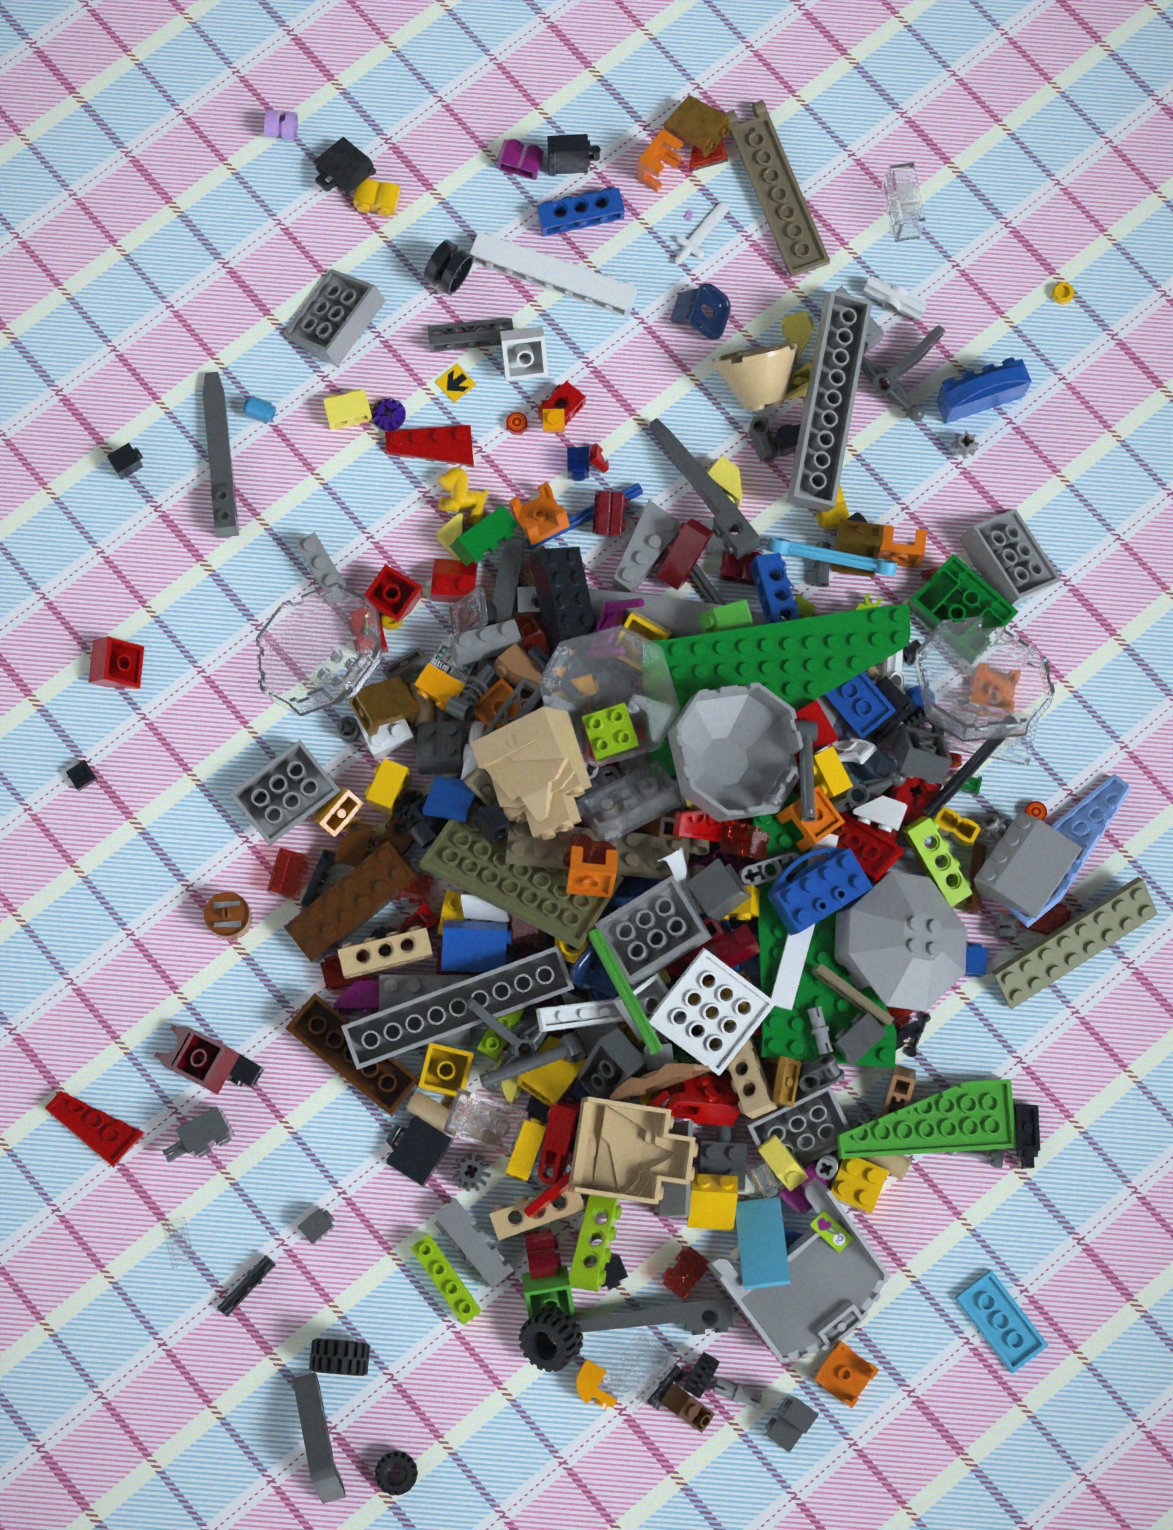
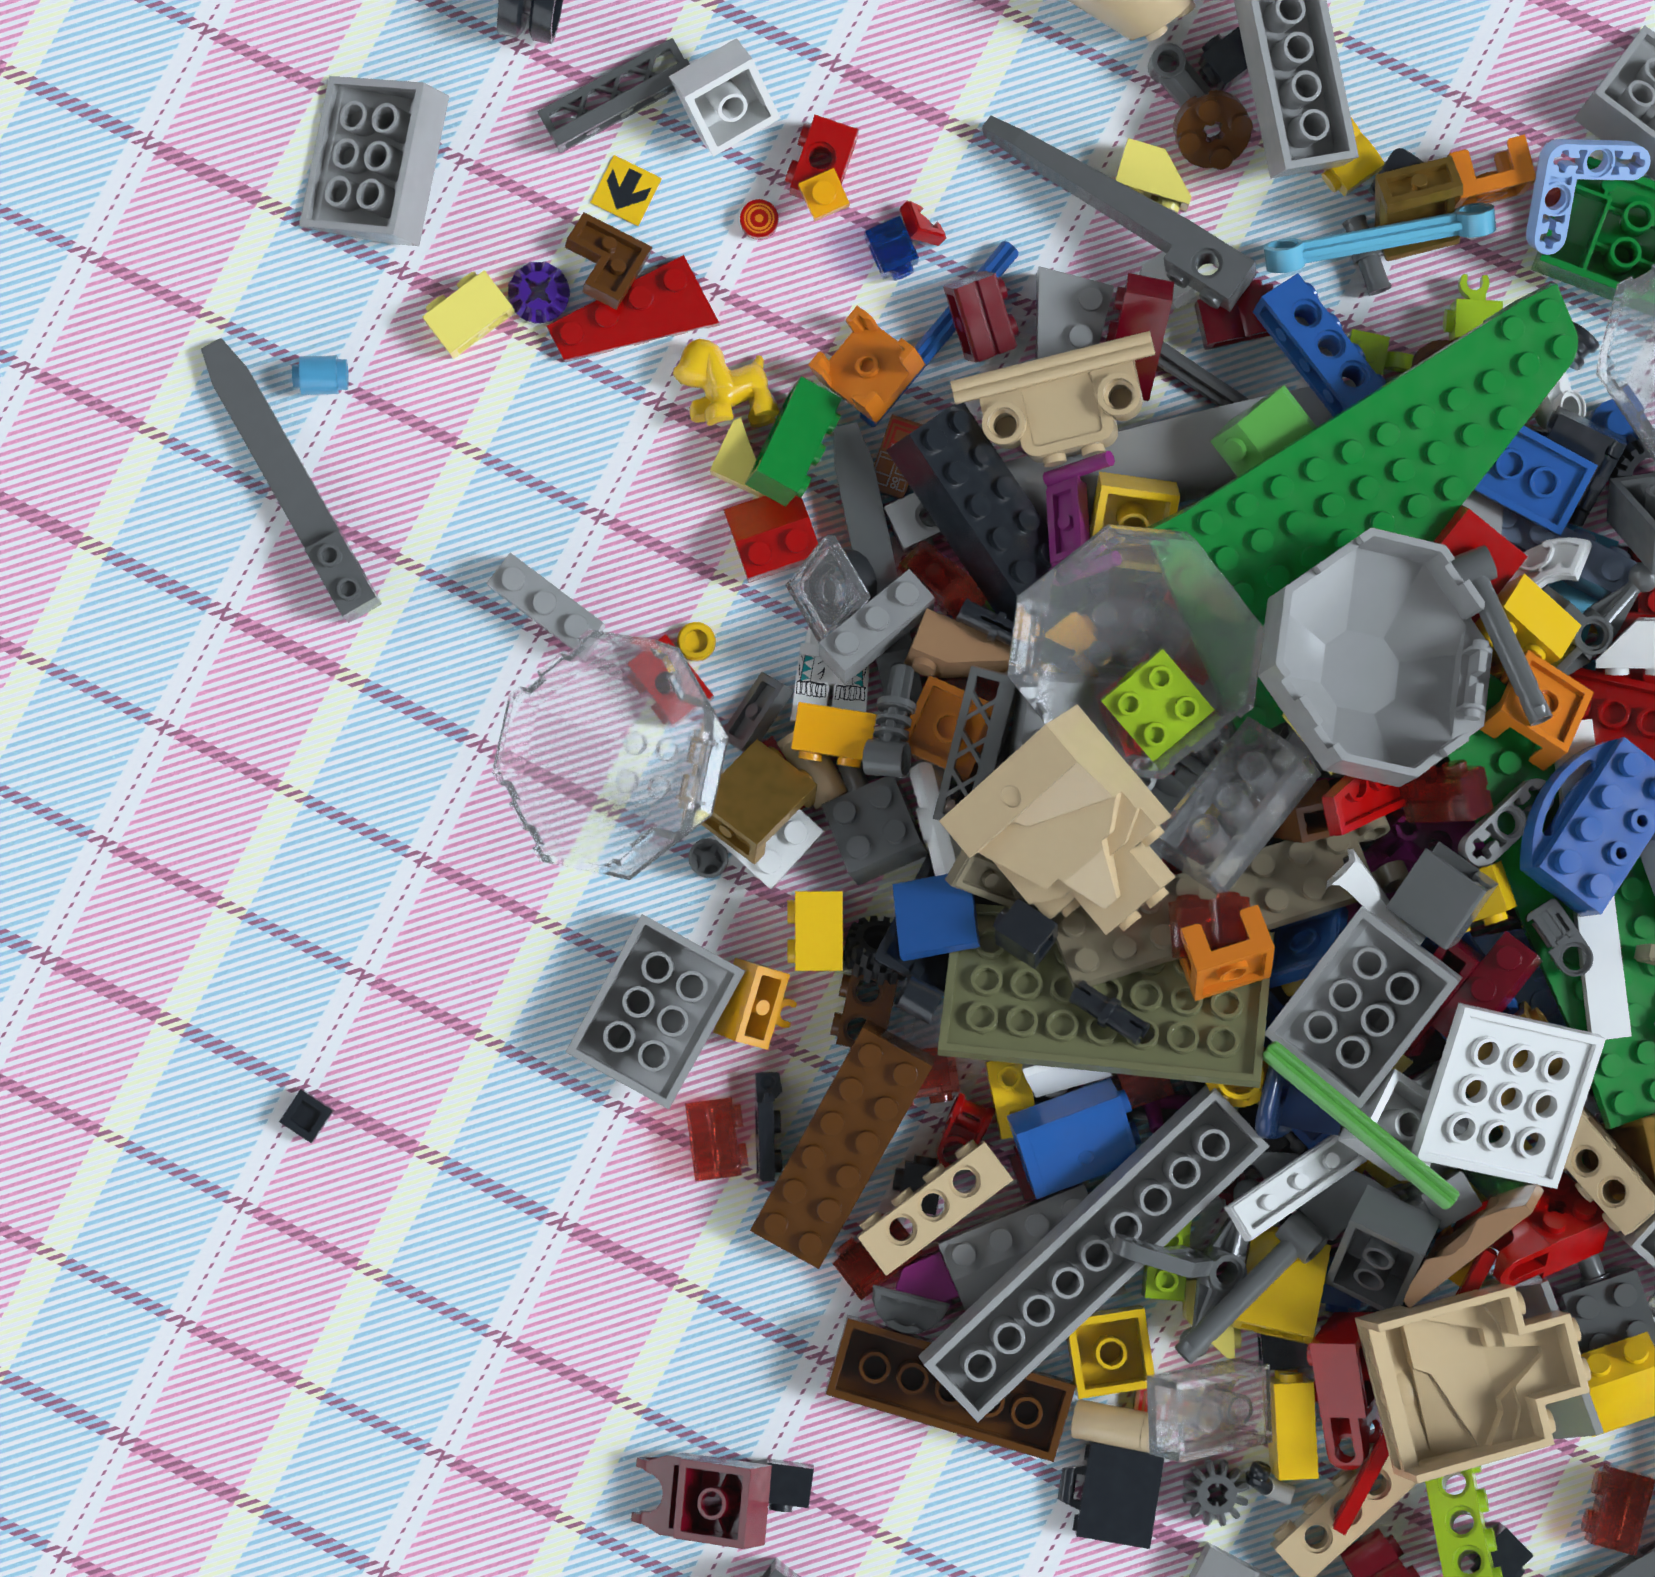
camera: 25 degrees left, 10 degrees up
(116, 663) = (279, 907): red slope -> none
(125, 460) = (138, 557): black brick -> none
(228, 915) = (650, 1249): dark orange piece -> none
(347, 1003) = (907, 1311): none -> dark grey tile
(353, 846) = (802, 1049): reddish brown slope -> none
(394, 593) = (684, 605): red slope -> none
(434, 410) = (616, 258): none -> reddish brown plate
(500, 1181) = (1269, 1487): none -> arm
(517, 879) = (1109, 1012): none -> black pin
(629, 566) = (1062, 400): none -> tan brick
(768, 457) = (1219, 149): none -> reddish brown plate
(774, 939) = (1559, 934): none -> dark grey piece
(939, 559) = (1565, 176): none -> light blue beam

